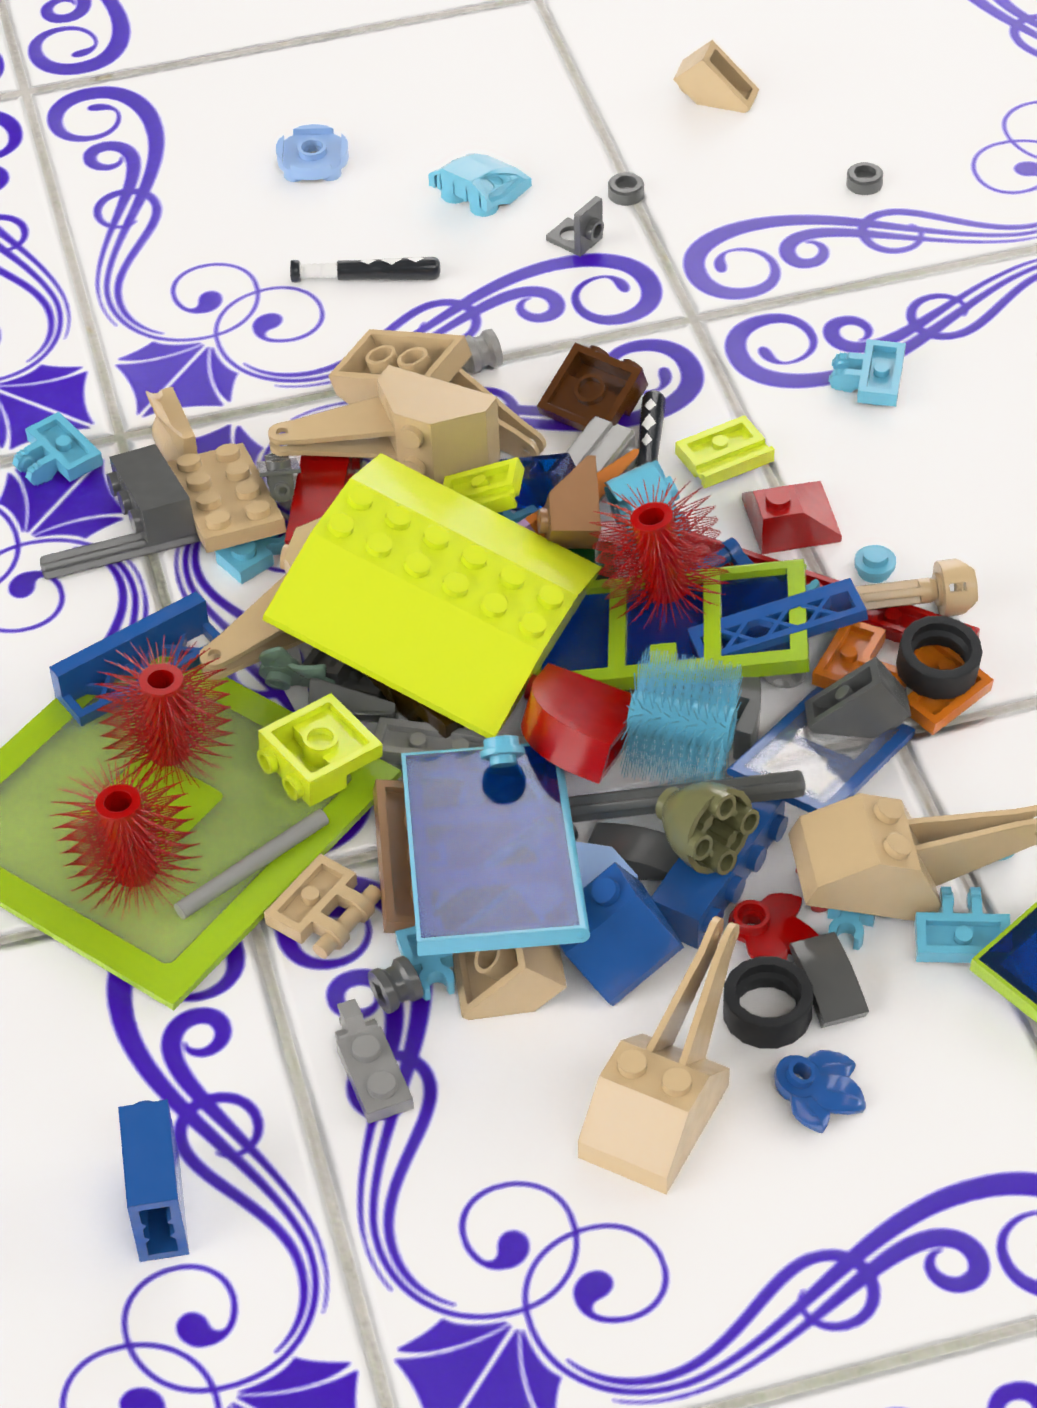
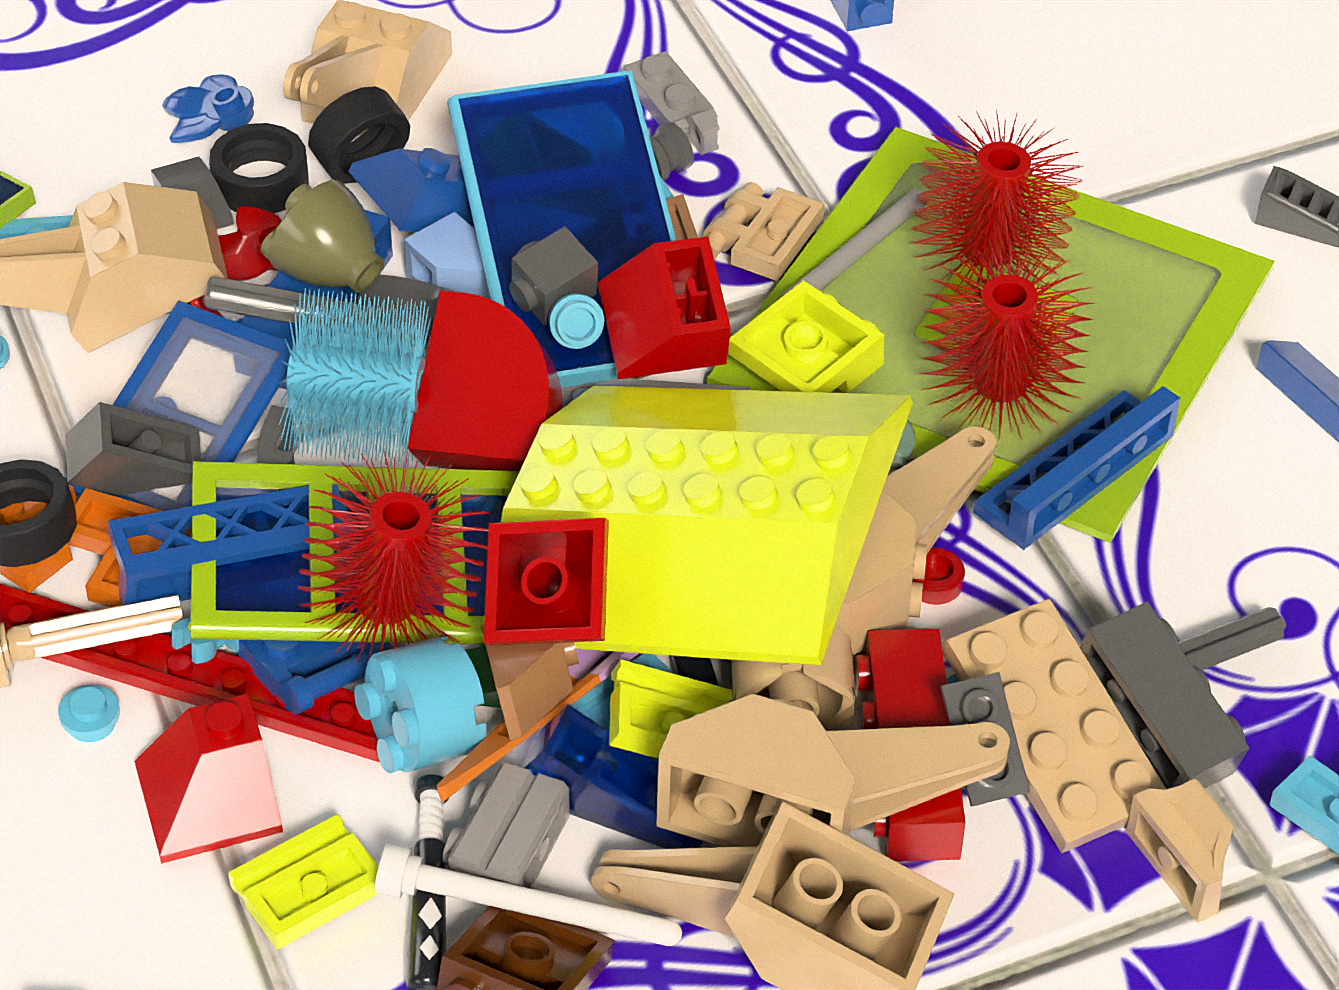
camera: 170 degrees right, 0 degrees up
(428, 741) = (666, 310): none -> red slope
(515, 774) = (551, 270): none -> dark grey brick
(552, 516) = (546, 581): none -> red slope
(652, 976) = (348, 117): none -> black tyre
(663, 425) = (405, 873): none -> white piece

